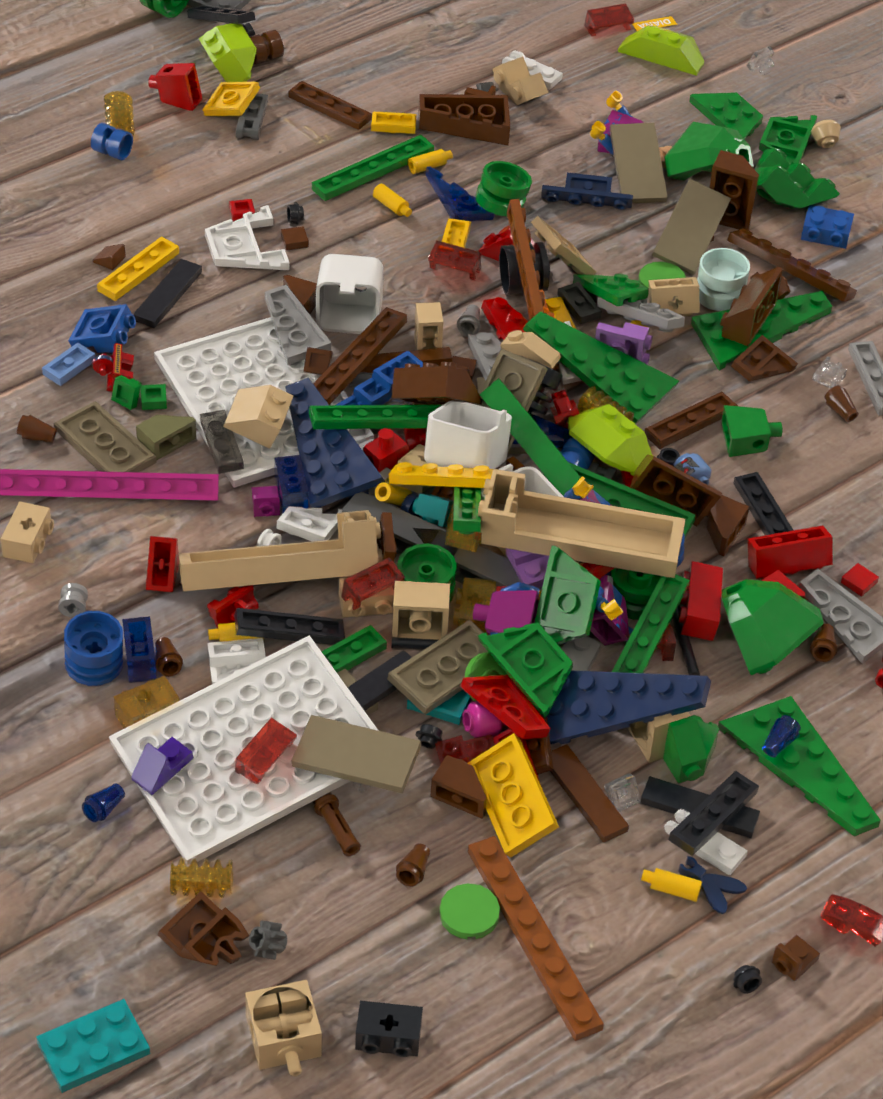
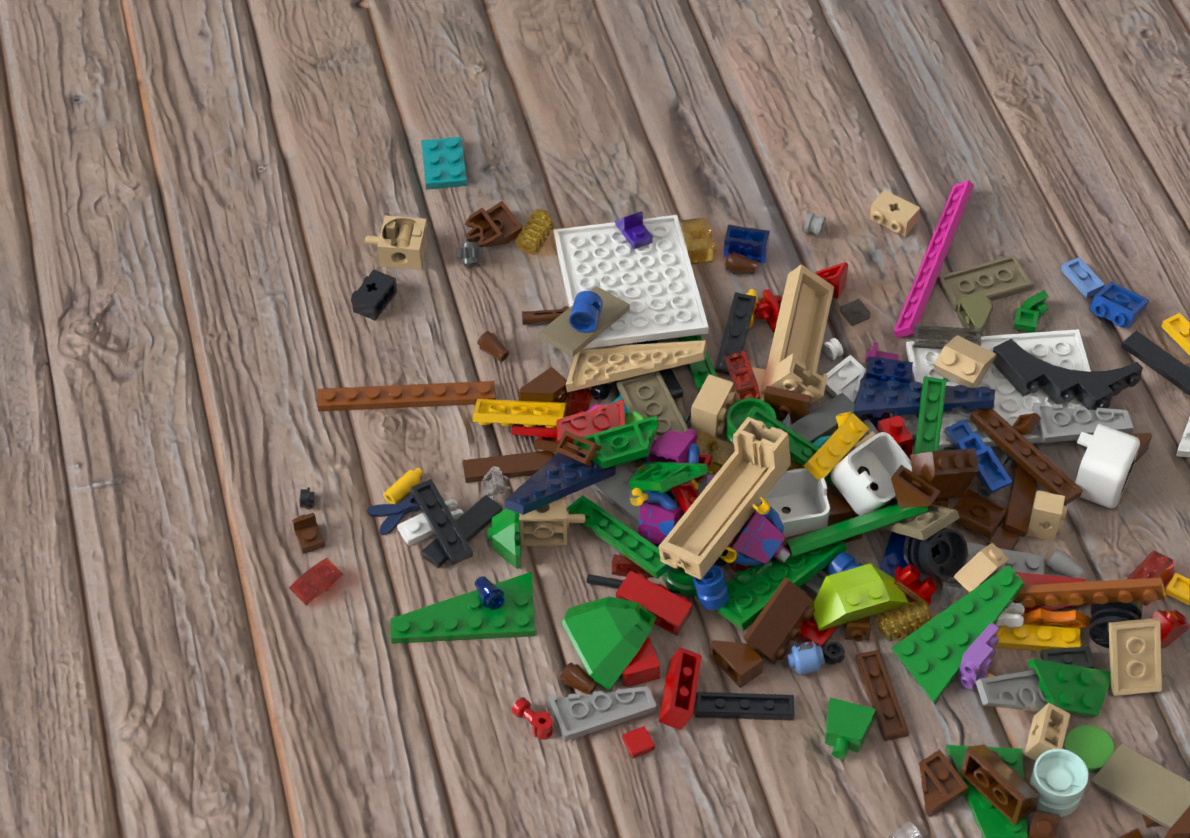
camera: 115 degrees right, 5 degrees up
(35, 429) = (1009, 241): reddish brown cone -> none
(93, 648) = (756, 210): blue wheel -> none
(101, 803) = (622, 201): clear blue cone -> none
(114, 366) = (1067, 299): red hips -> none
(198, 539) = (855, 312): none -> clear smoke plate
(233, 656) = (717, 301): white slope -> none
(249, 327) = (1061, 384): none -> black arch
(264, 750) = (611, 273): clear red hinge -> none
(360, 735) = (586, 311): none -> blue wheel
(391, 694) = (615, 363): none -> tan wing
(469, 911) = (443, 366): bright green tile -> none
(489, 387) = (911, 489): none -> reddish brown slope
(549, 694) = (589, 454): none -> reddish brown tile
(840, 401) = (858, 825): reddish brown cone -> none

